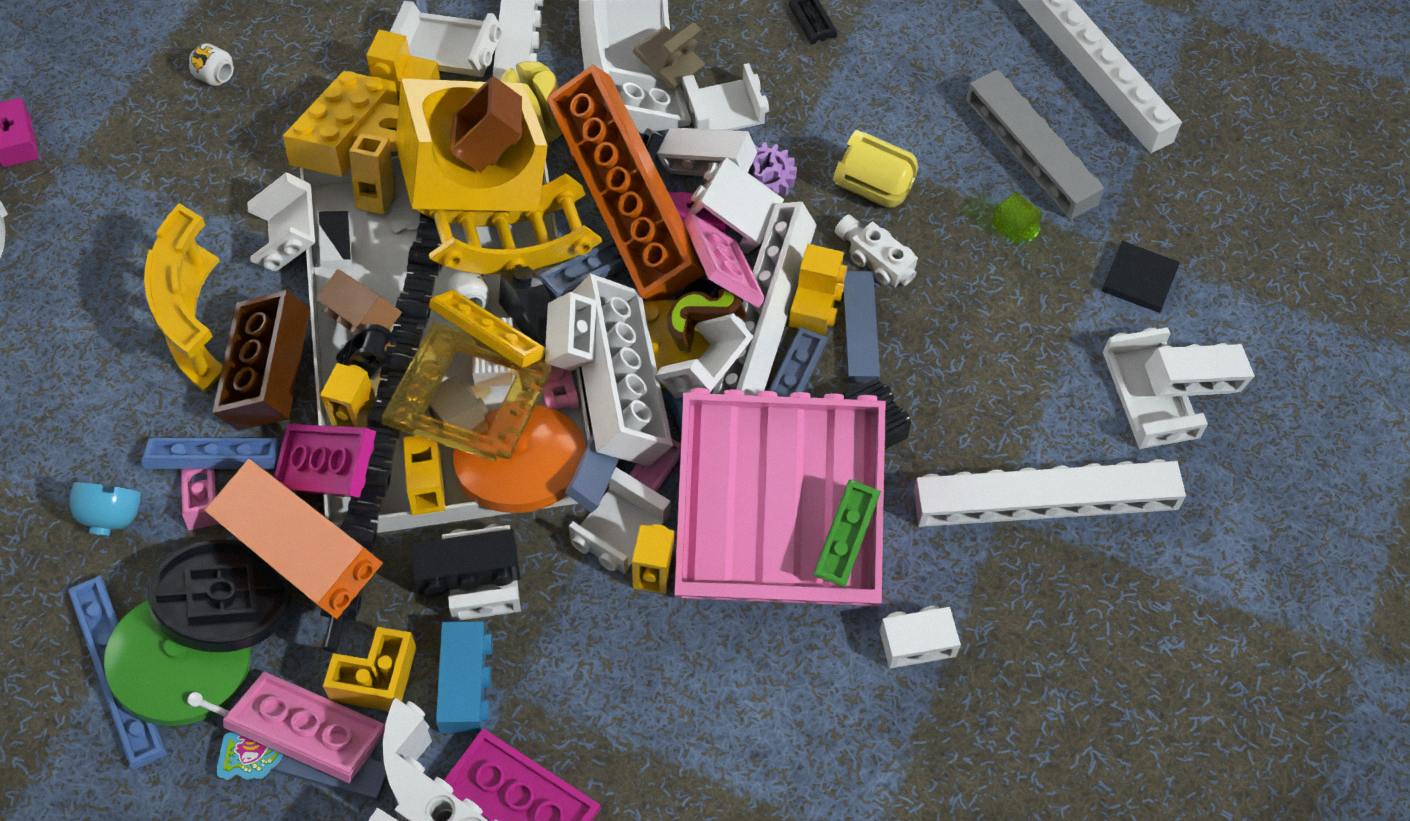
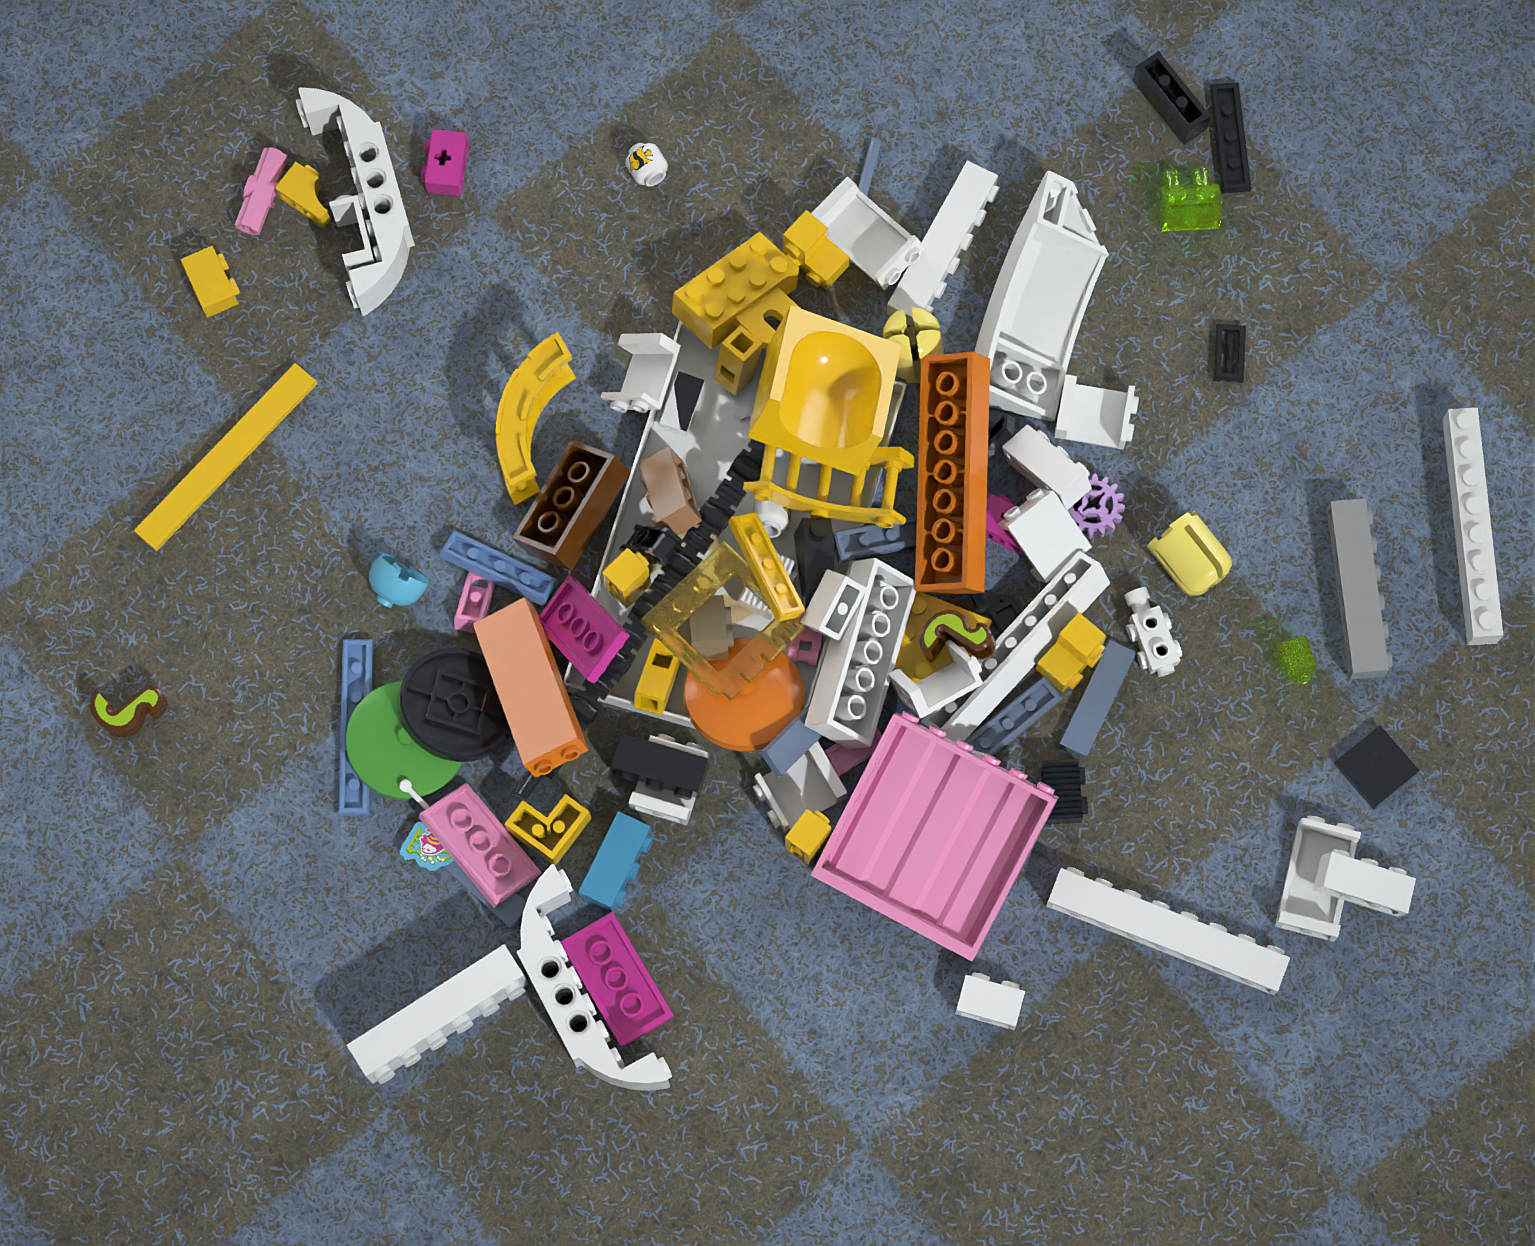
camera: 30 degrees right, 15 degrees up
(487, 124) = (842, 388): dark orange piece -> none
(671, 54) = (1068, 342): dark tan bracket -> none
(723, 260) = (1000, 591): bright pink tile -> none
(846, 533) = (970, 893): bright green tile -> none

